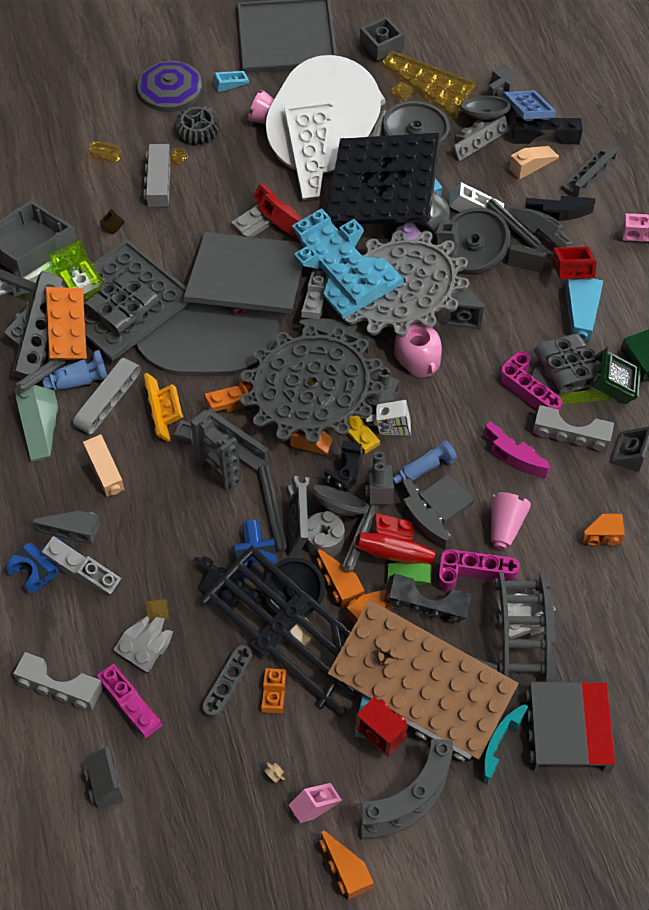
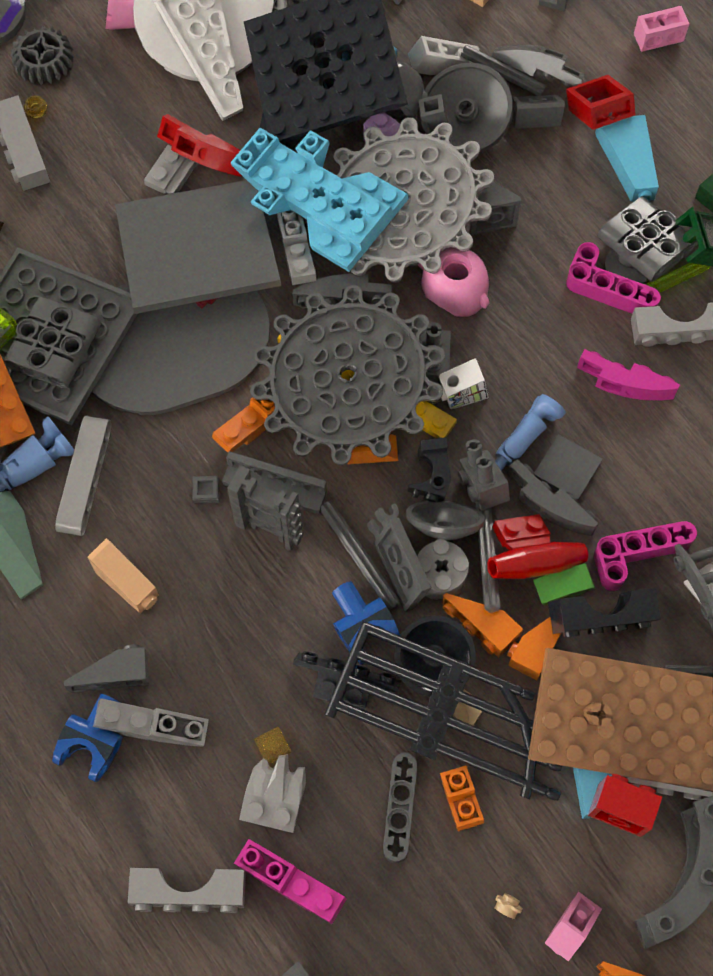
camera: 20 degrees left, 10 degrees up
(164, 406) = (164, 463): light orange bracket -> none
(507, 518) = (654, 472): bright pink cone -> none
(565, 209) = (558, 30): black slope -> none

